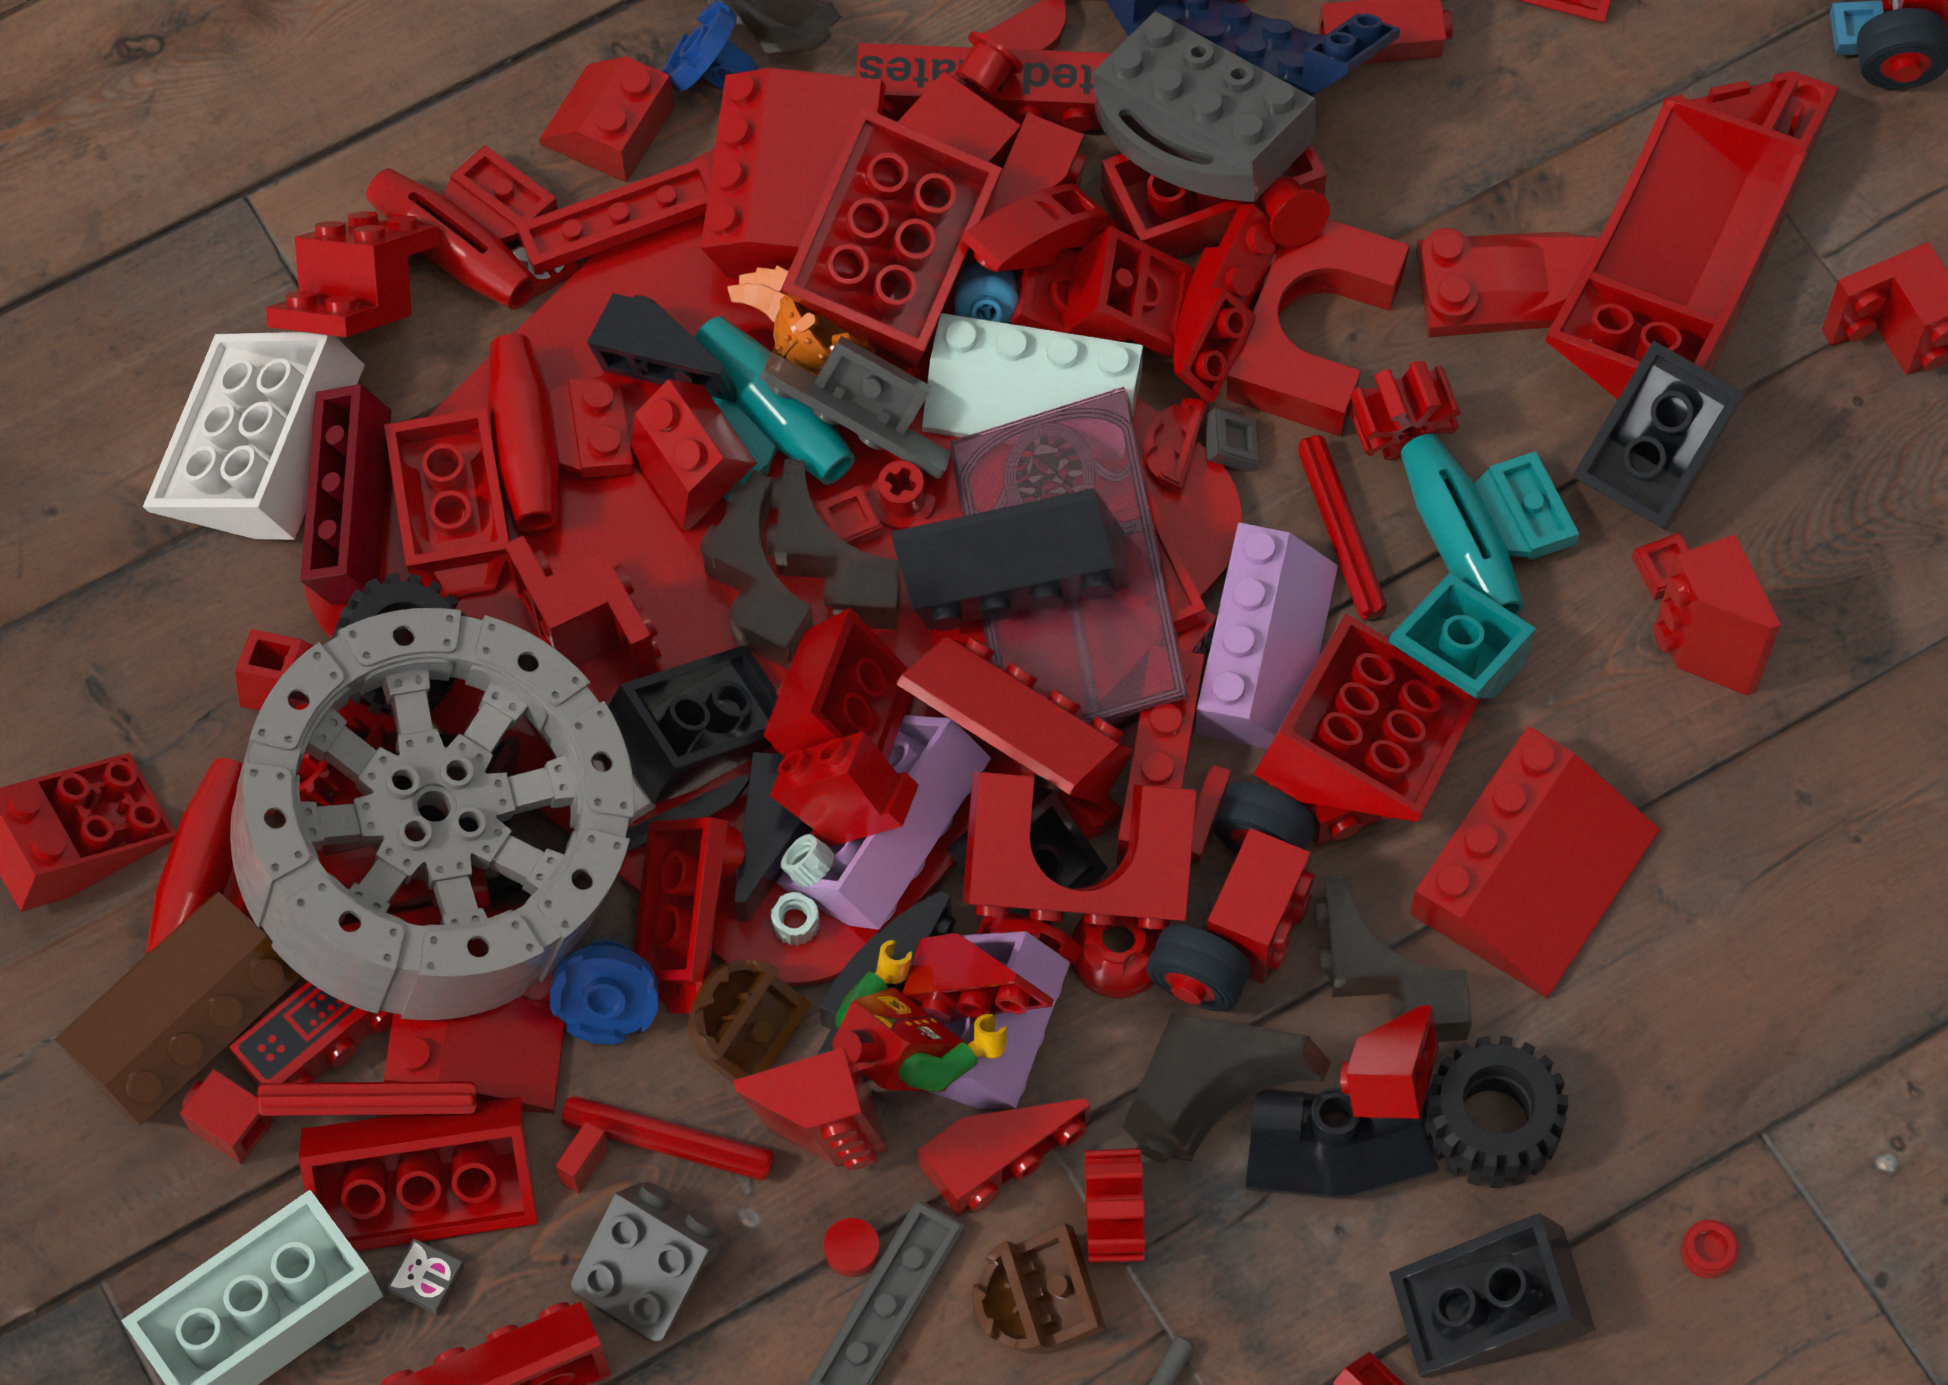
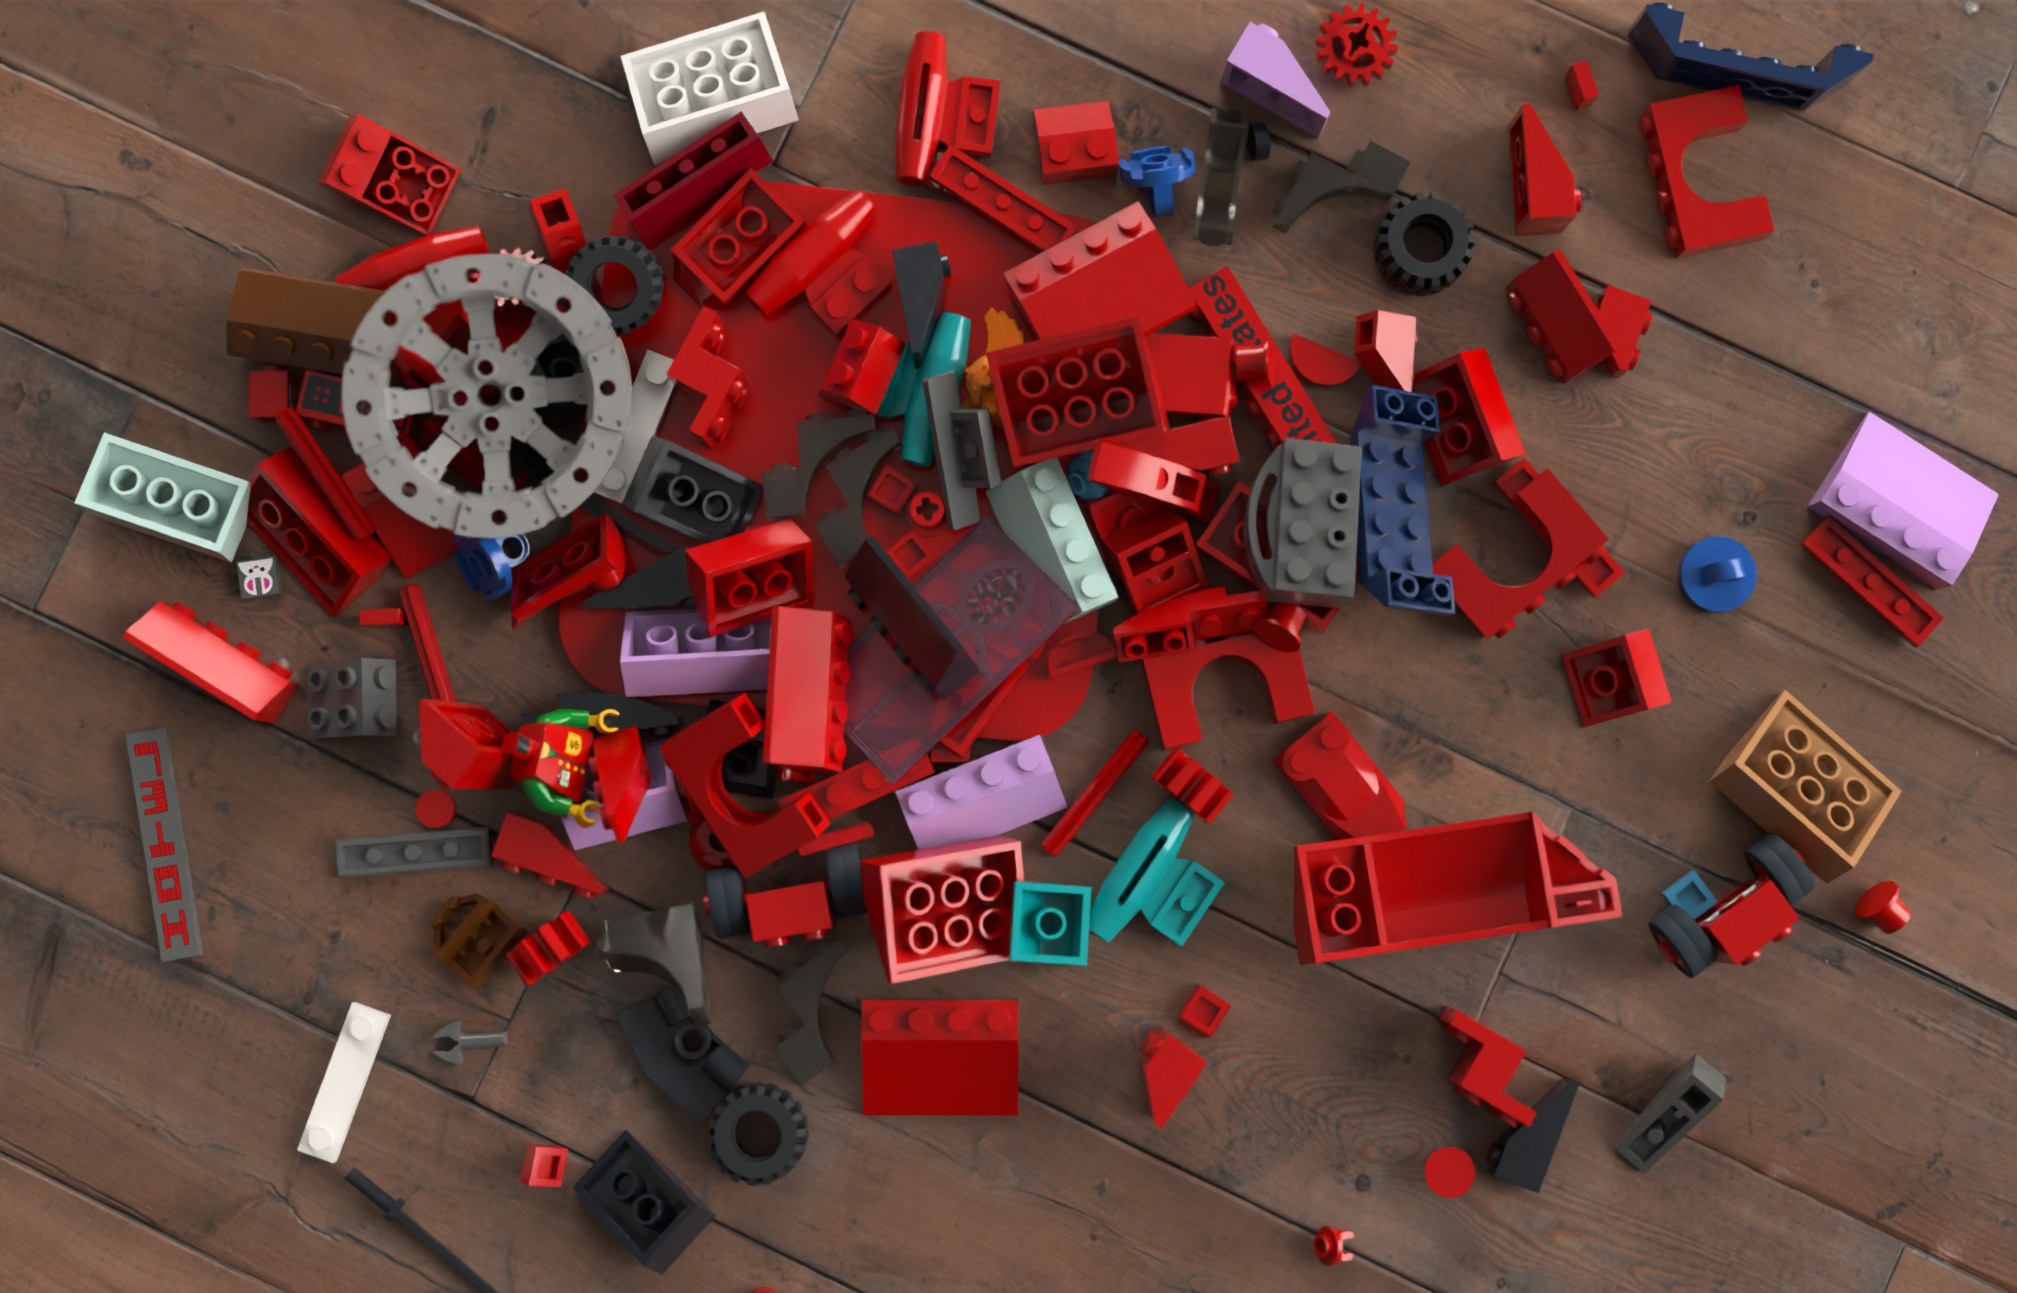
camera: 55 degrees right, 20 degrees up
(353, 275) = (842, 72): red bracket -> none
(743, 1018) = (524, 655): reddish brown slope -> none
(803, 933) = (596, 637): light aqua axle -> none
(807, 860) = (637, 626): light aqua axle -> none
(844, 789) = (682, 623): red hips -> none
(1232, 440) = (1108, 687): dark grey tile -> none
(1392, 1067) = (735, 1061): red slope -> none
(1659, 435) = (1270, 960): black slope -> none

